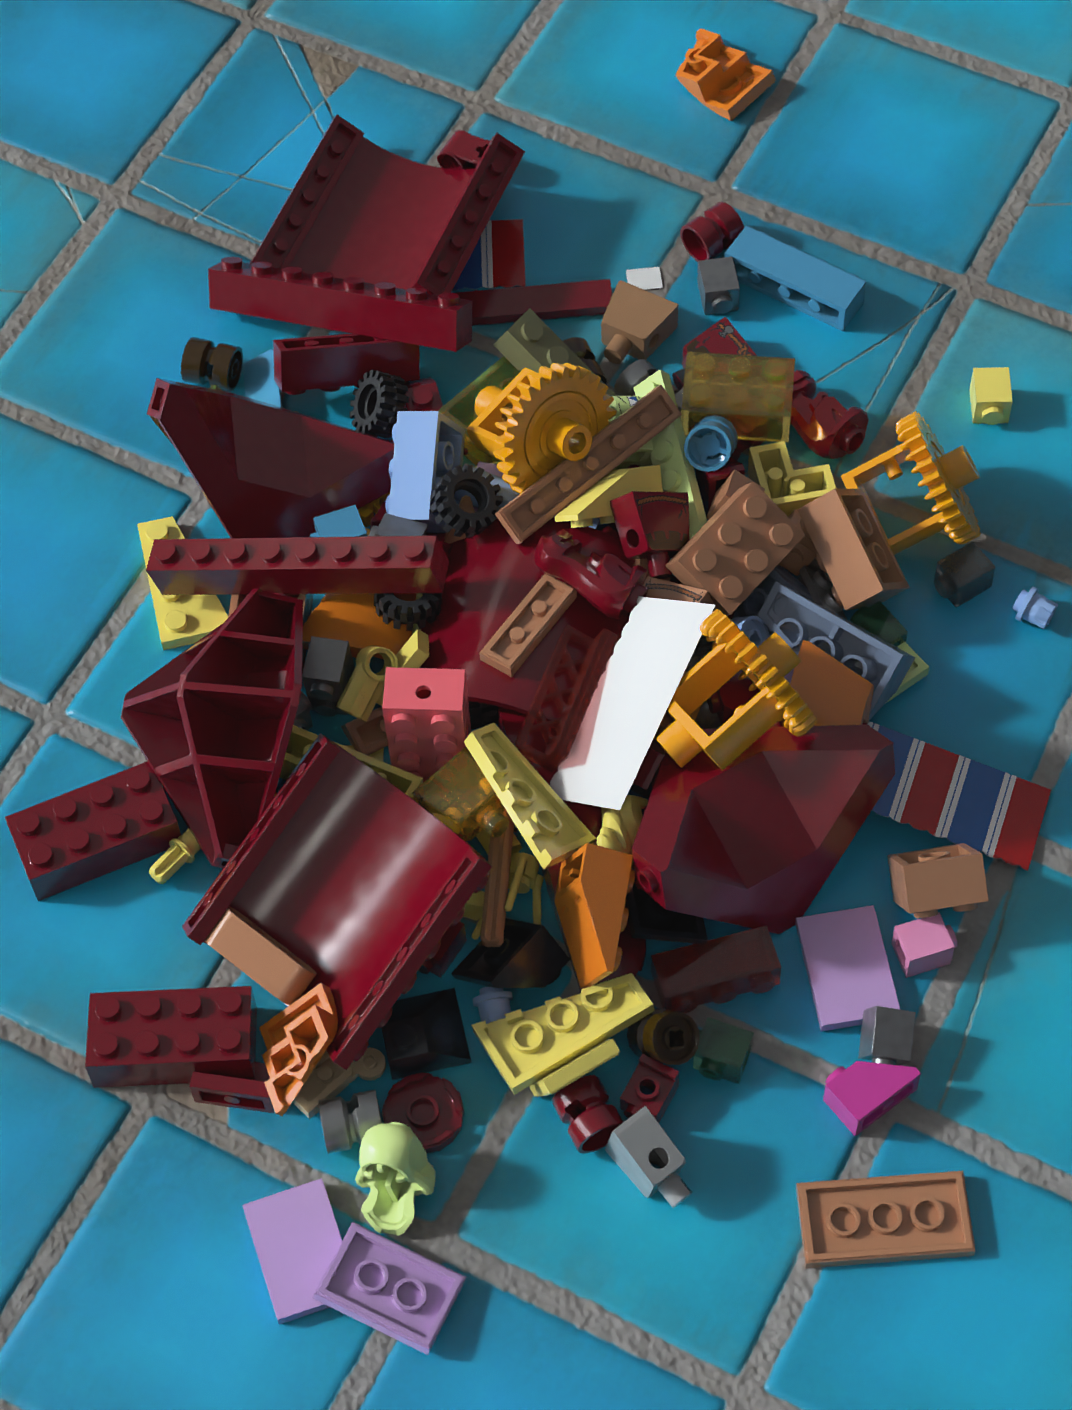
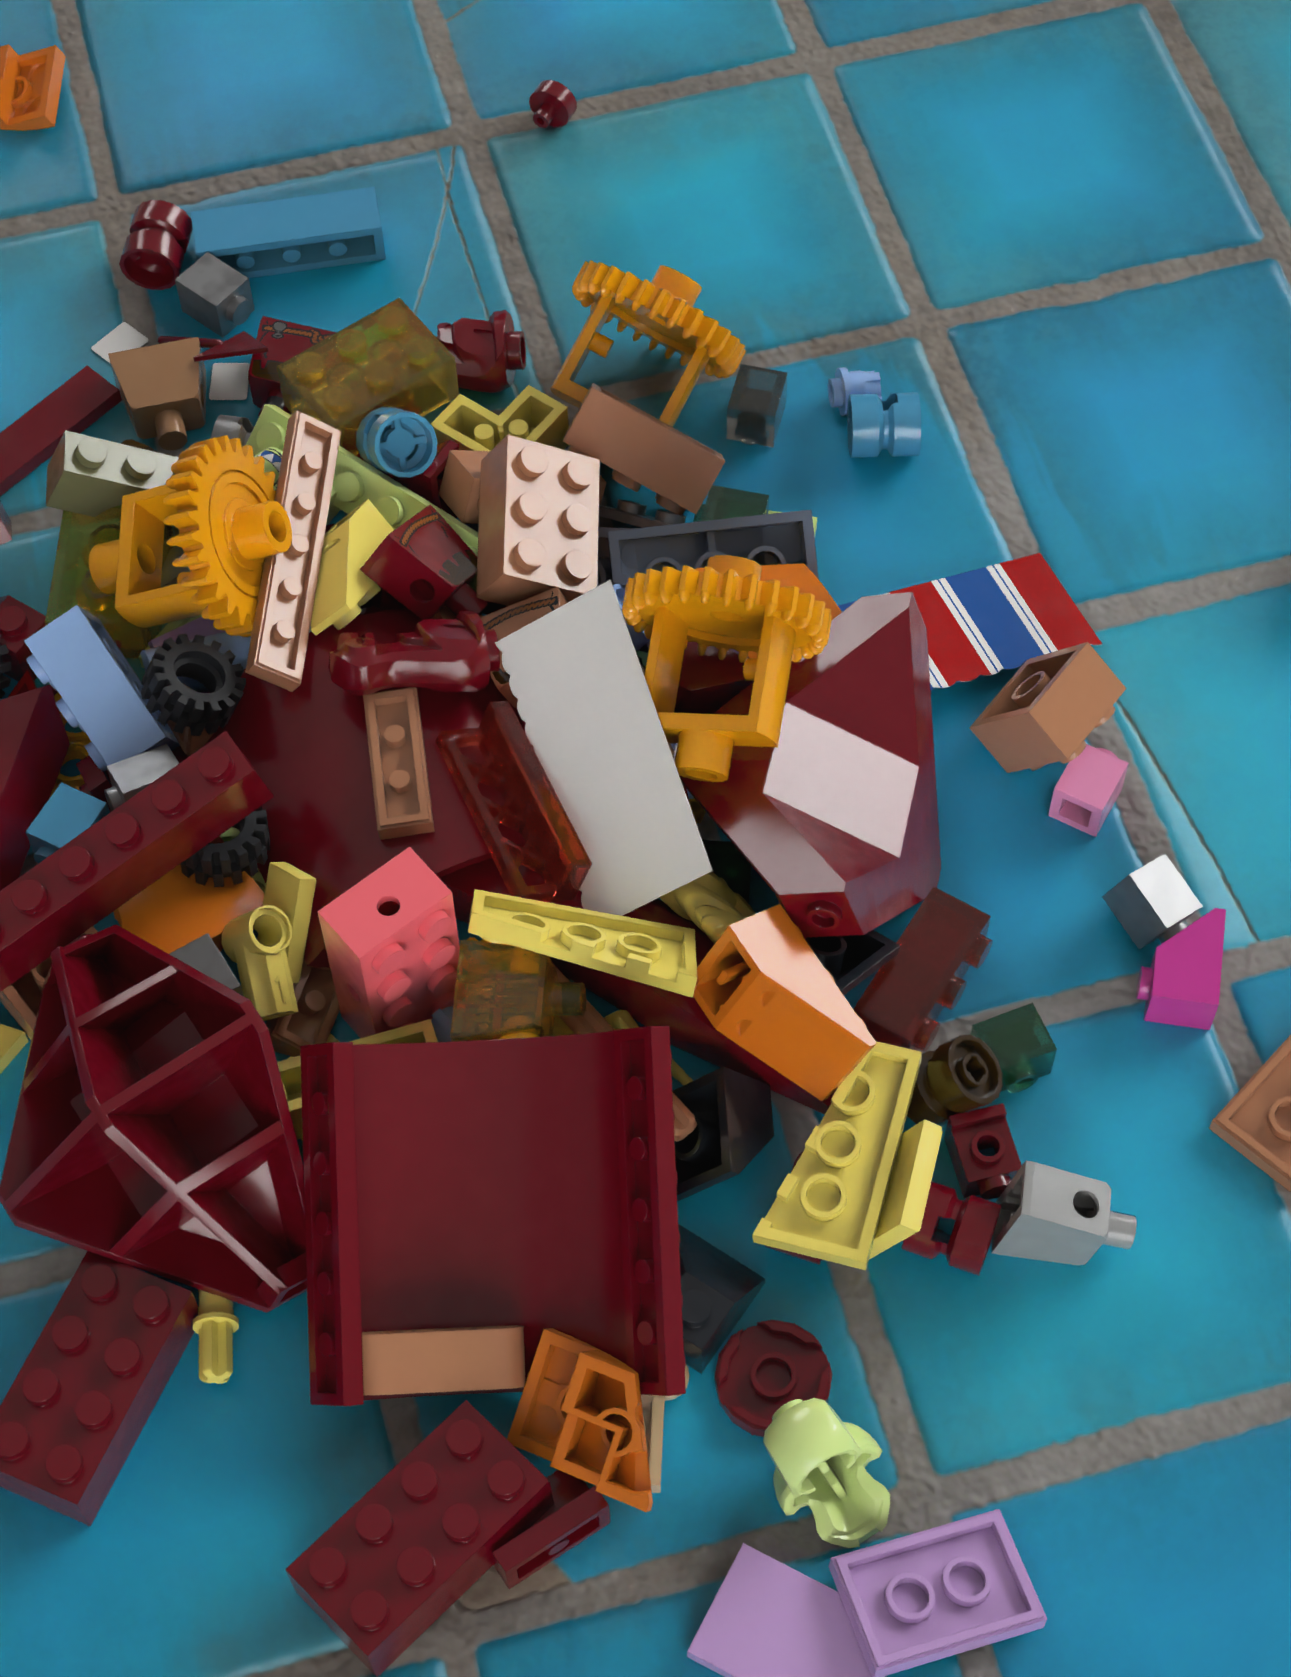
camera: 45 degrees left, 0 degrees up
(348, 1120) = (712, 1458): flat silver wheel -> none
(492, 1003) = (739, 1203): light blue hose -> none
(678, 341) = (229, 381): none -> white sticker
(692, 325) = (235, 346): none -> dark red piece
(846, 965) = (1035, 870): lavender tile -> none
(991, 395) = (605, 218): light yellow brick -> none
(1029, 643) = (884, 425): none -> dark azure wheel
(1030, 302) = (552, 104): none -> dark red tile

